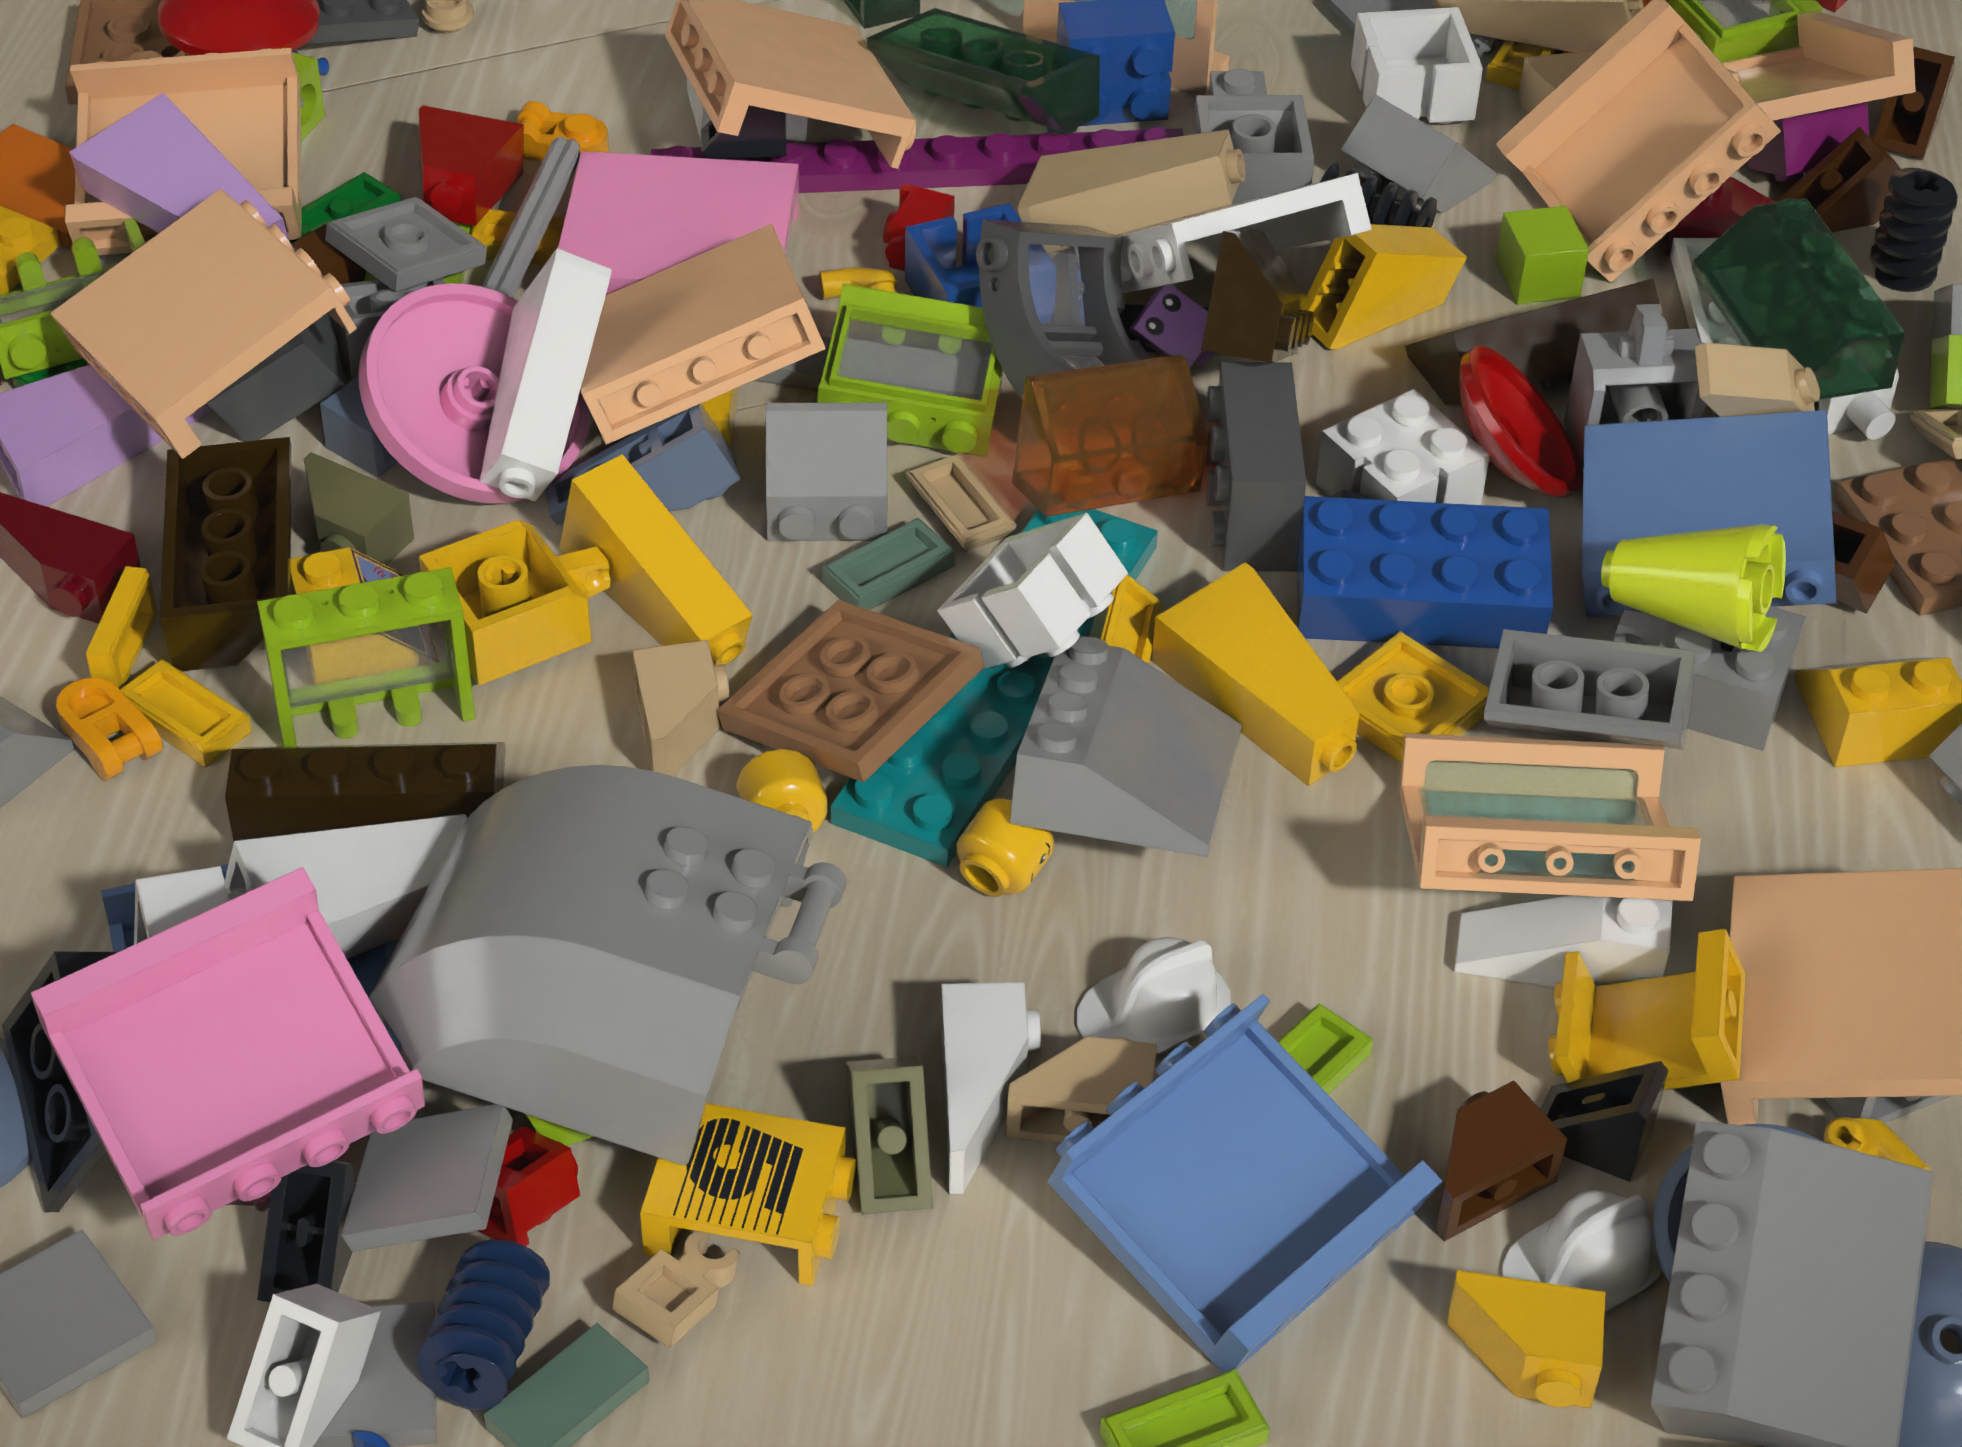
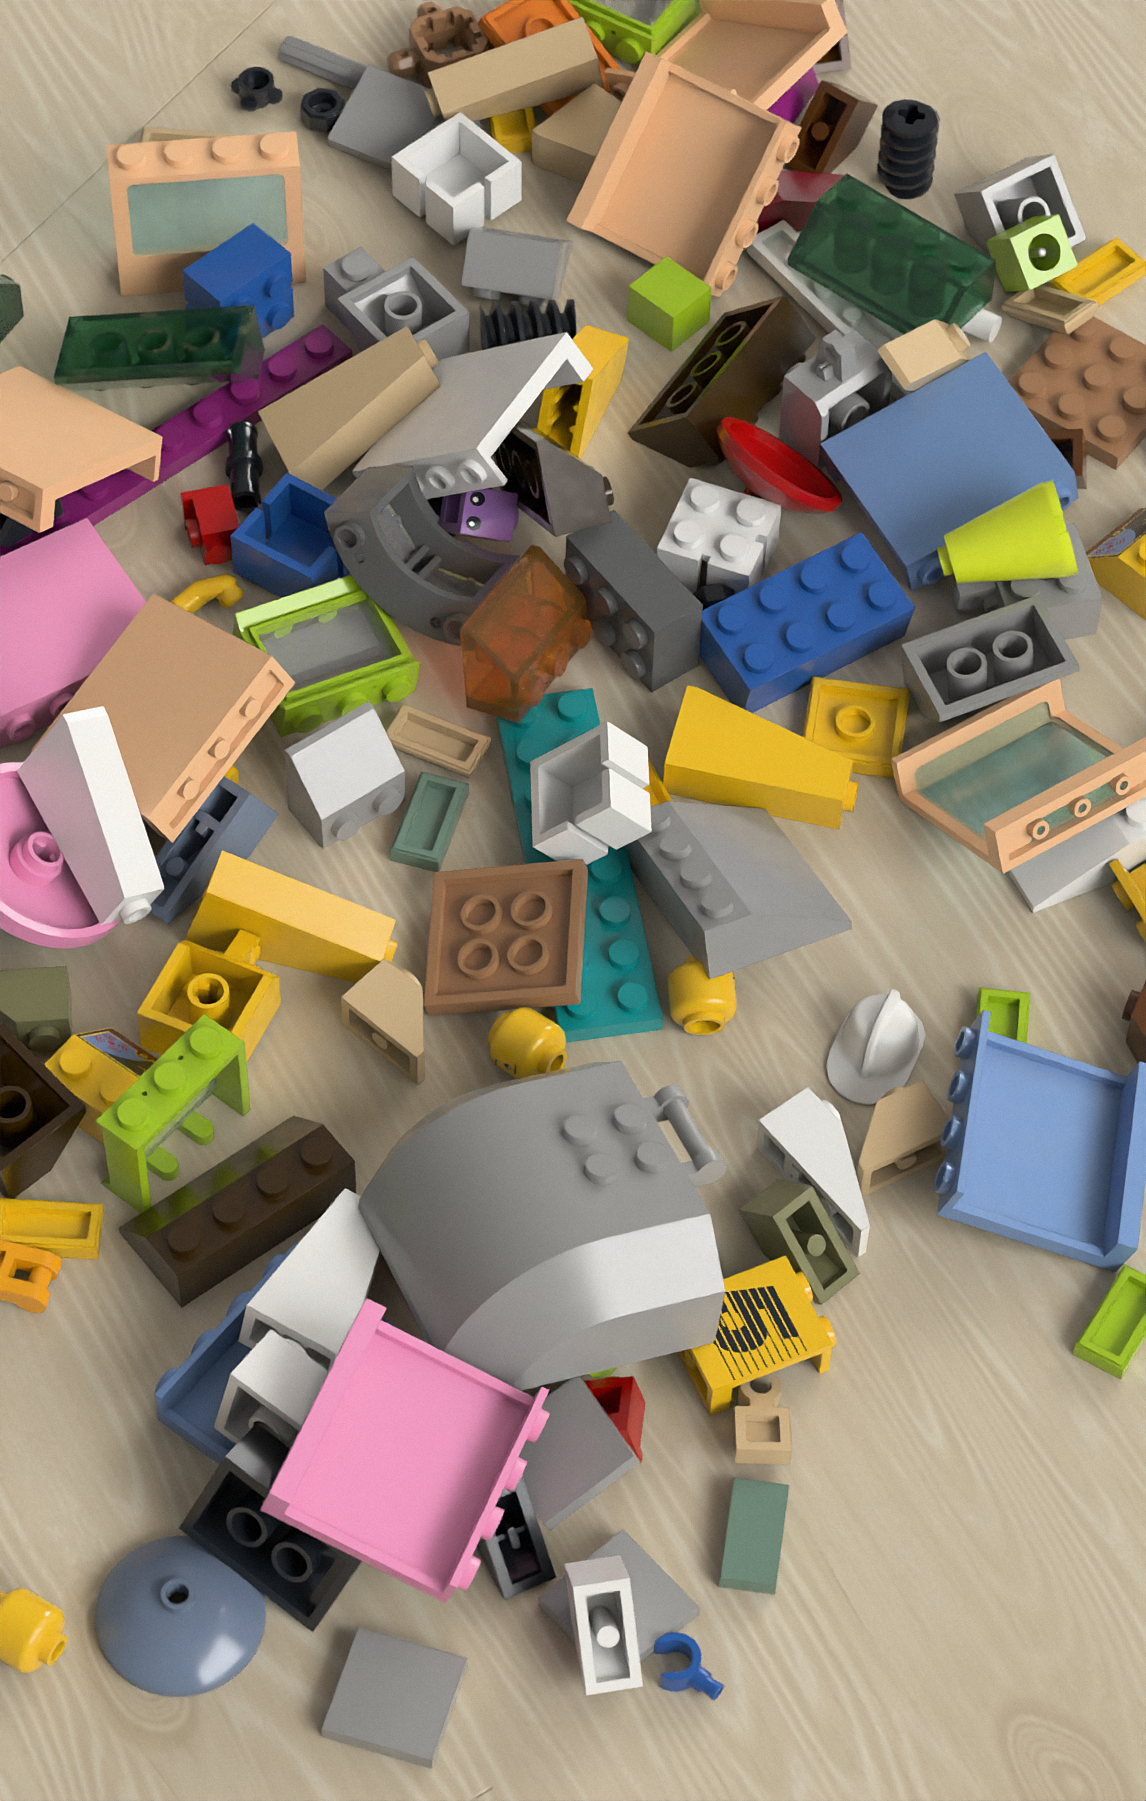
camera: 35 degrees left, 10 degrees up
(483, 1323) = (677, 1523): dark blue piece -> none
(1004, 190) = (244, 466): none -> black pin

